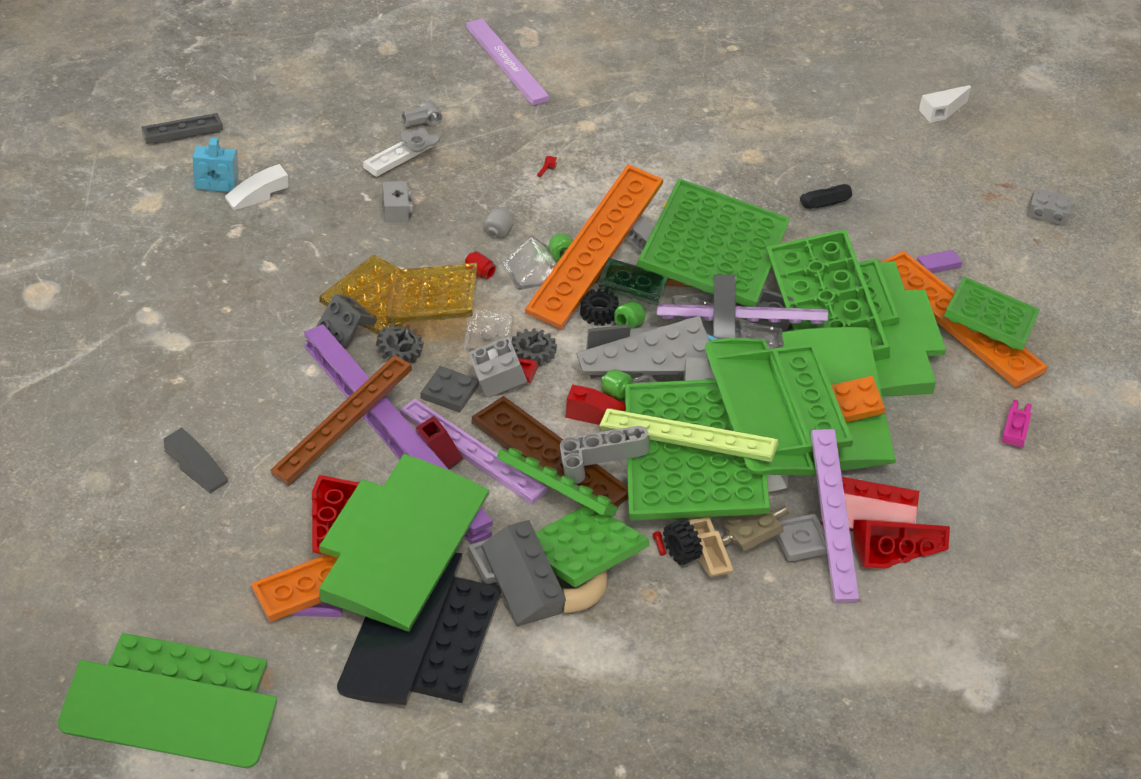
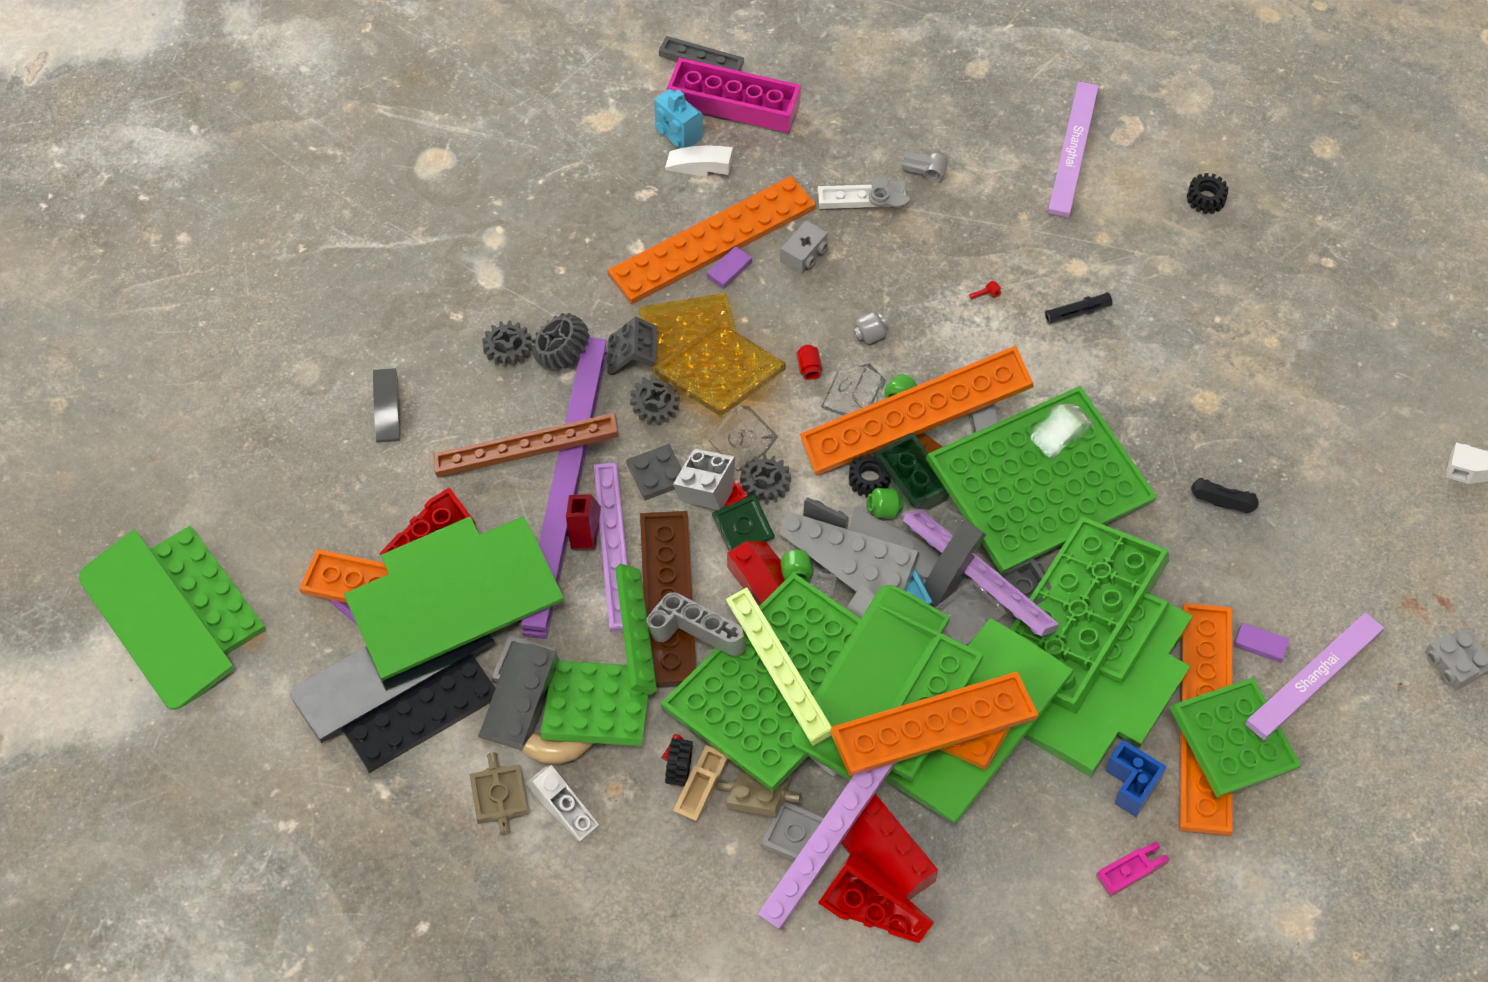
camera: 45 degrees right, 15 degrees up
(244, 371) = (507, 343): none -> dark grey gear
(246, 132) = (737, 94): none -> dark pink brick
(290, 344) = (560, 342): none -> dark grey gear
(319, 234) = (711, 239): none -> orange plate
(354, 242) = (729, 267): none -> medium lavender tile
(551, 382) = (743, 523): none -> dark green tile
(577, 647) = (498, 794): none -> dark tan plate
(621, 44) = (1204, 202): none -> black tyre
(621, 140) = (1087, 305): none -> black pin
(624, 621) = (561, 802): none -> white slope
(704, 199) = (1065, 424): none -> clear brick
(835, 396) = (933, 723): none -> orange plate
(962, 367) = (1138, 772): none -> blue brick
(993, 258) = (1314, 676): none -> lavender tile

